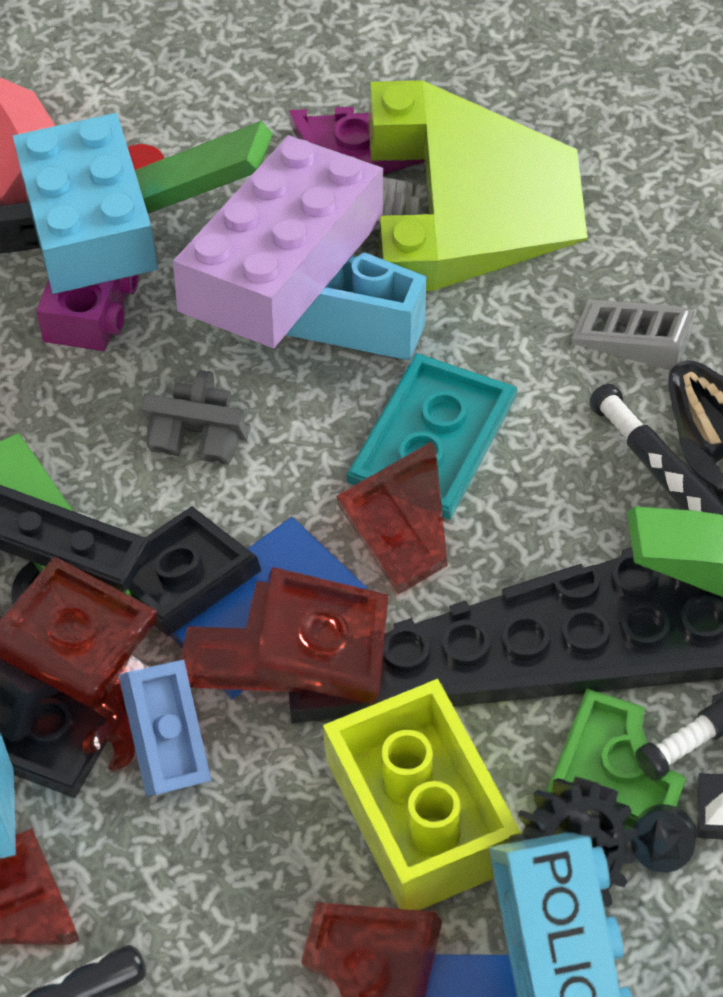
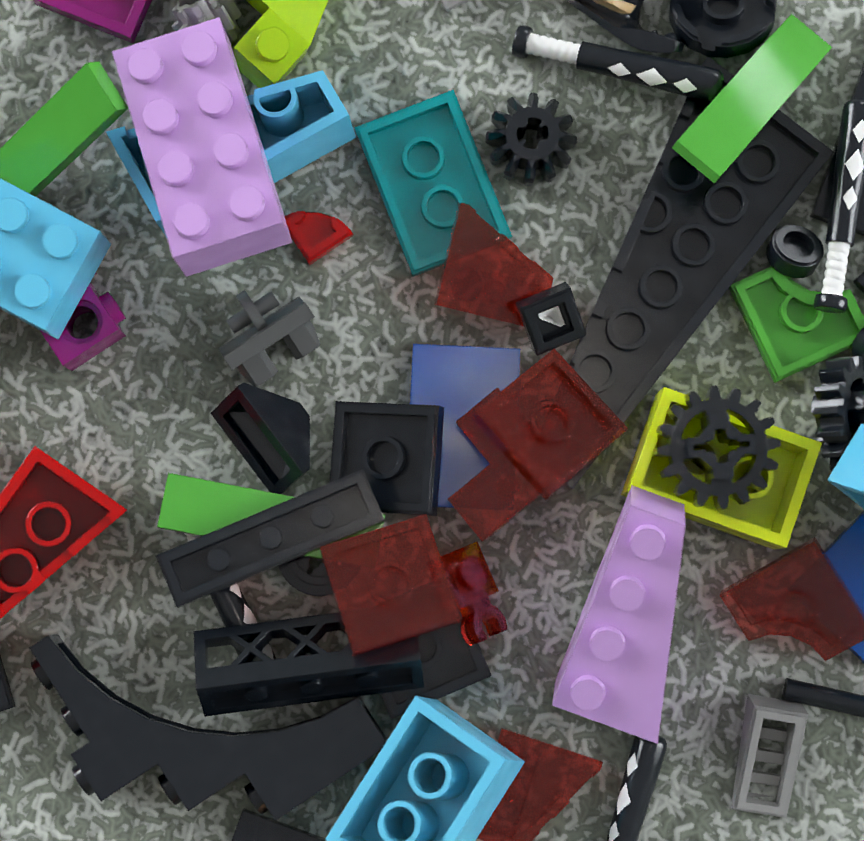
camera: 55 degrees left, 30 degrees up
(123, 480) = (268, 433): none -> black slope
(164, 727) = (513, 583): medium blue plate -> none
(213, 820) = (625, 630): none -> lavender wedge
(309, 396) = (316, 233): none -> red tile
(410, 573) = (551, 318): none -> black tile
(423, 741) = (717, 421): none -> black gear
(537, 459) = (549, 150): none -> black gear
(665, 707) = (794, 251): none -> black tile

